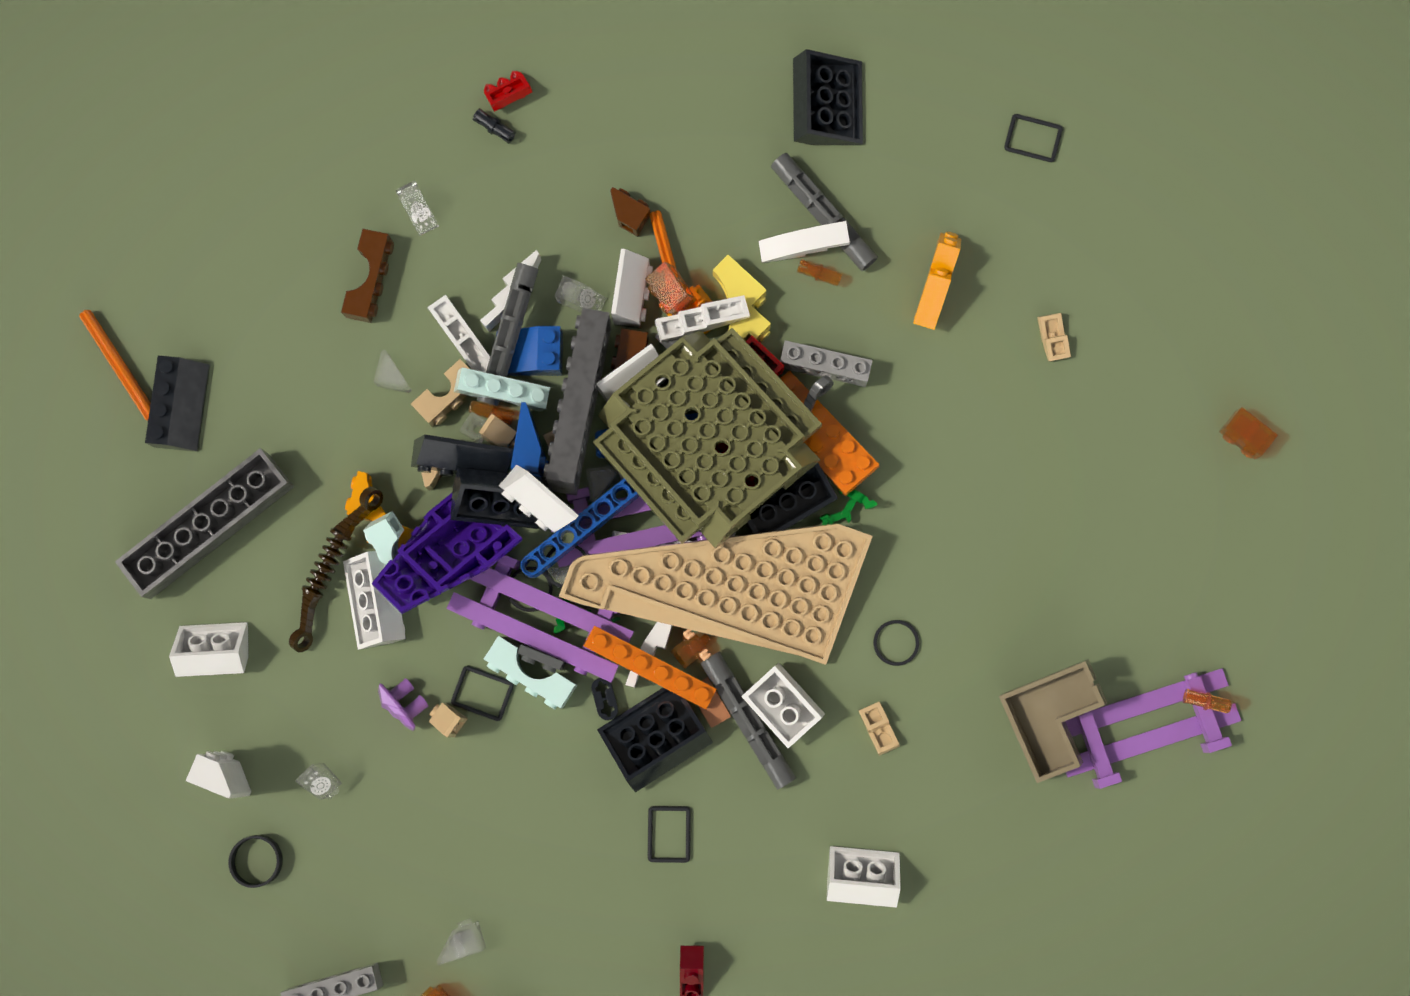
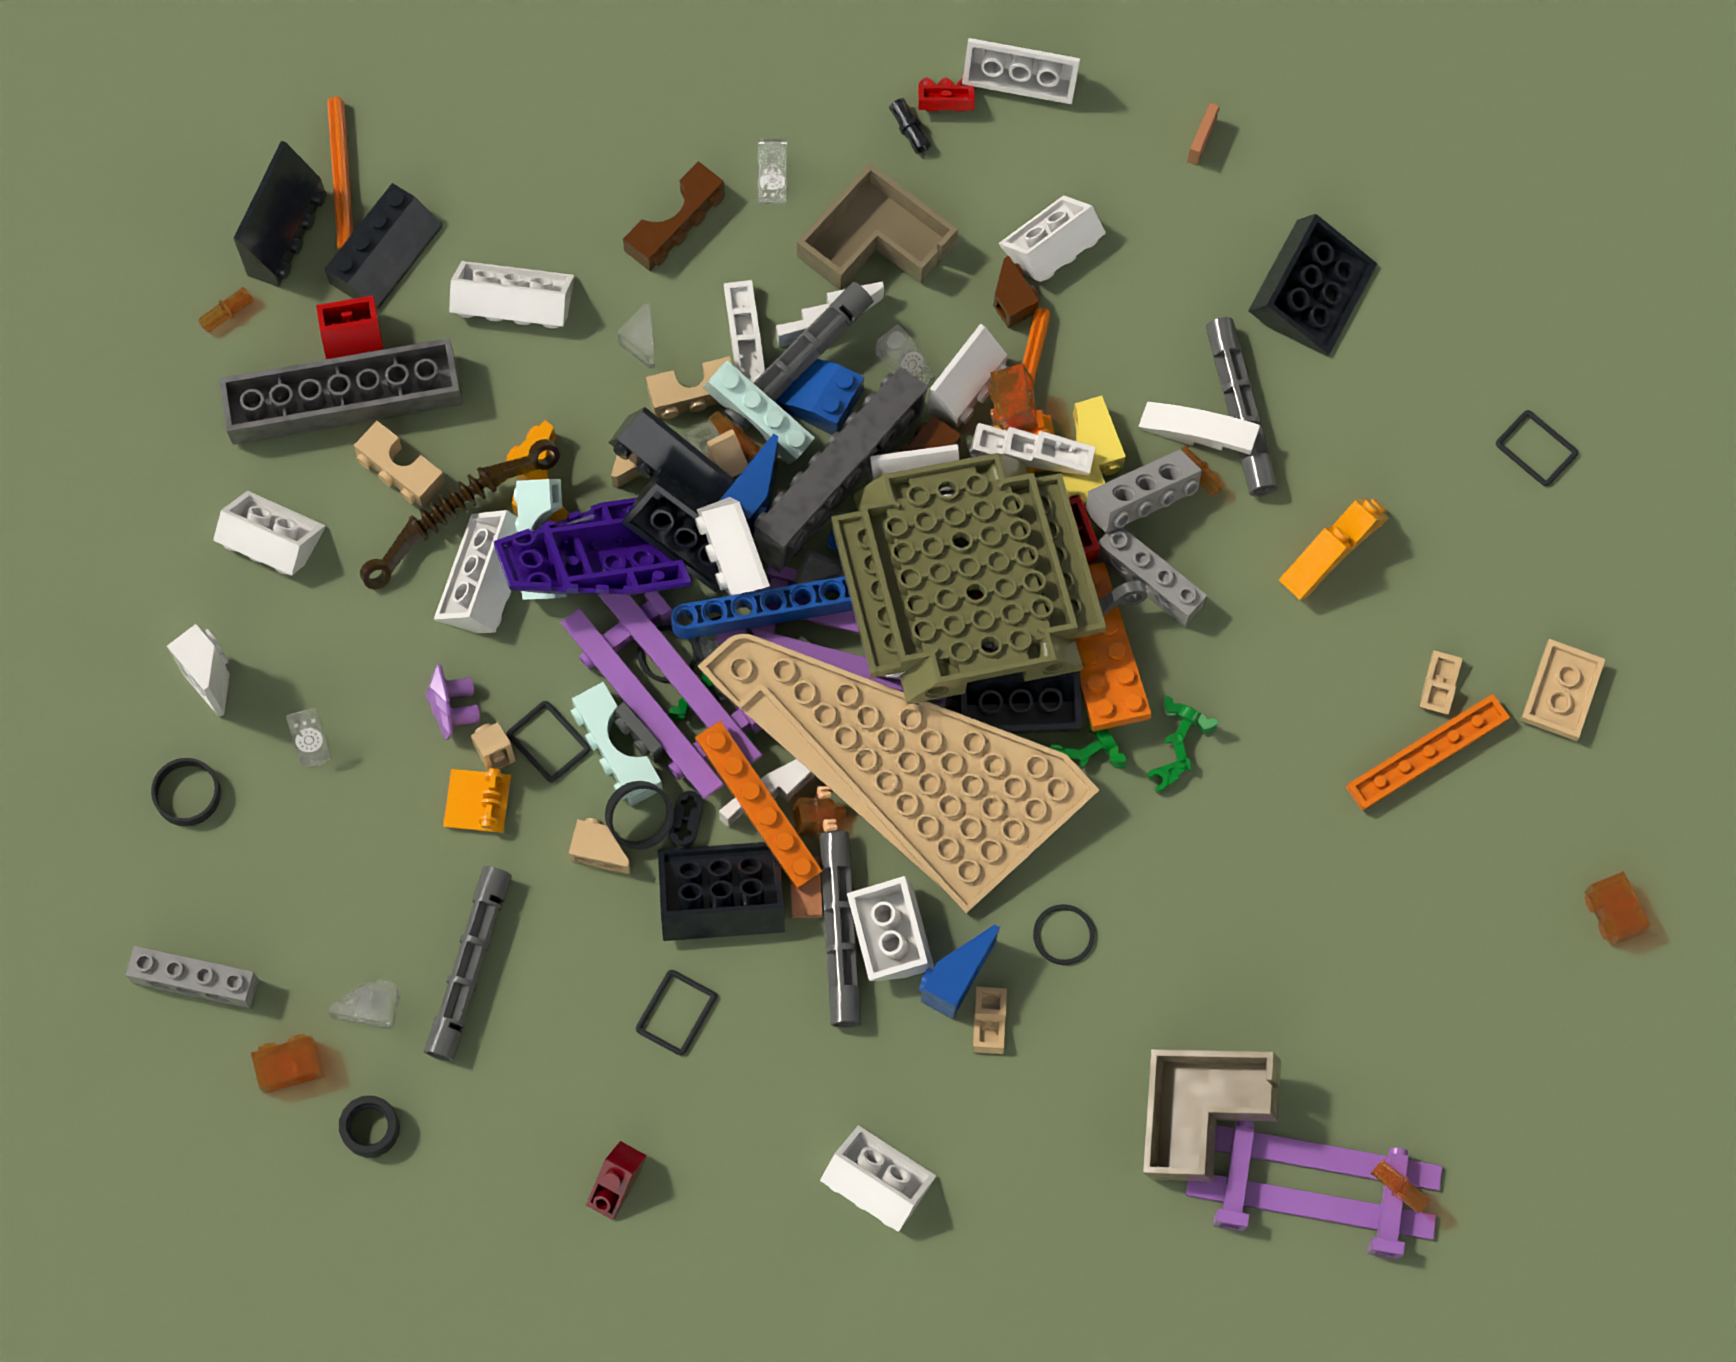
camera: 20 degrees right, 10 degrees down
(91, 421) = (279, 216): none -> black slope
(92, 505) = (225, 310): none -> clear orange axle
(187, 475) = (349, 327): none -> red slope
(254, 550) = (415, 481): none -> tan arch
(284, 390) = (511, 294): none -> white slope
(457, 761) = (477, 800): none -> light orange hinge
(506, 205) = (871, 218): none -> dark tan piece
(509, 861) = (449, 1025): none -> dark grey piece
(550, 48) = (1020, 71): none -> white slope
(555, 750) = (597, 847): none -> tan slope
(588, 728) = (659, 835): none -> black tyre
(634, 156) = (1053, 237): none -> white slope
(697, 28) = (1203, 133): none -> nougat tile
(791, 309) = (1143, 491): none -> light grey brick
(843, 715) = (954, 975): none -> blue slope
(909, 494) = (1188, 717): none -> green piece
(1070, 390) = (1427, 752): none -> orange plate
(1136, 300) = (1562, 690): none -> tan plate

